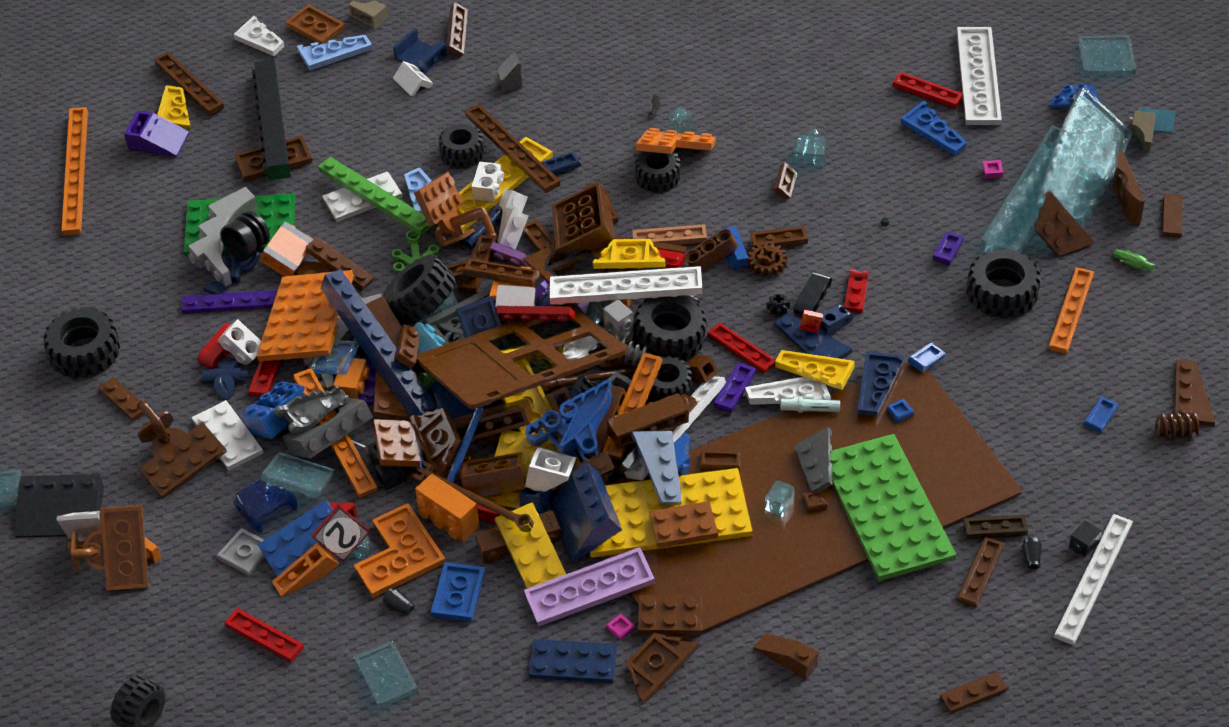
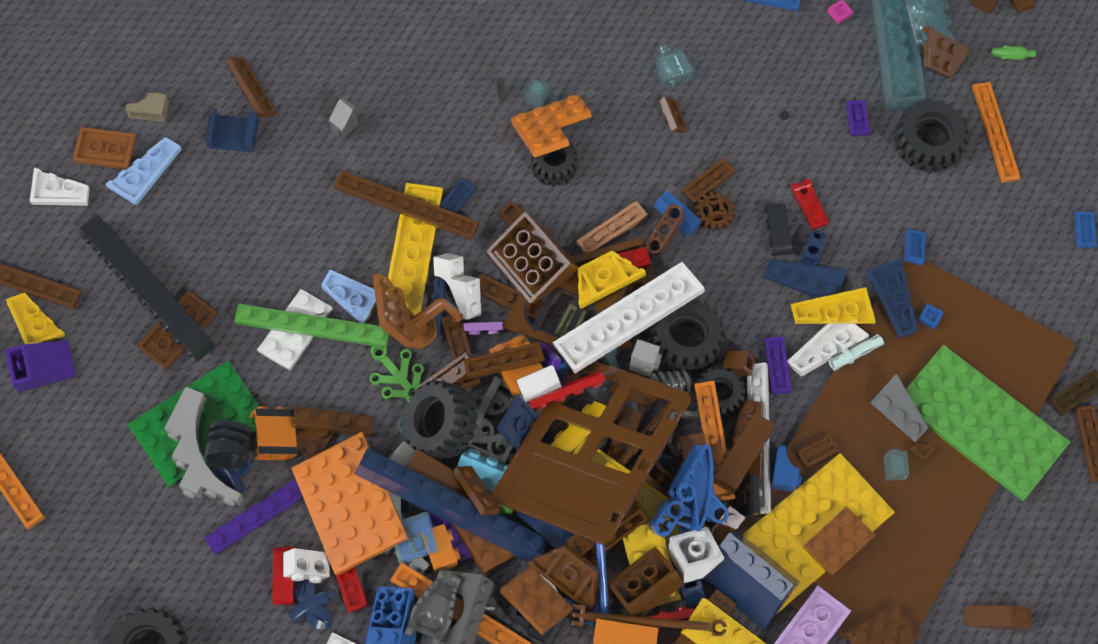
camera: 35 degrees left, 20 degrees up
(215, 287) = (227, 511): dark blue tile -> none
(411, 78) = (246, 167): white panel -> none
(461, 145) = (355, 238): black tyre -> none
(487, 181) = (407, 258): white brick -> none
(579, 348) = (630, 415): white wing -> none
(660, 463) = (778, 485): sand blue wing -> none
(741, 348) = (754, 318): red tile -> none
(778, 304) = (756, 261): black gear -> none
(810, 321) = (801, 263): red plate -> none

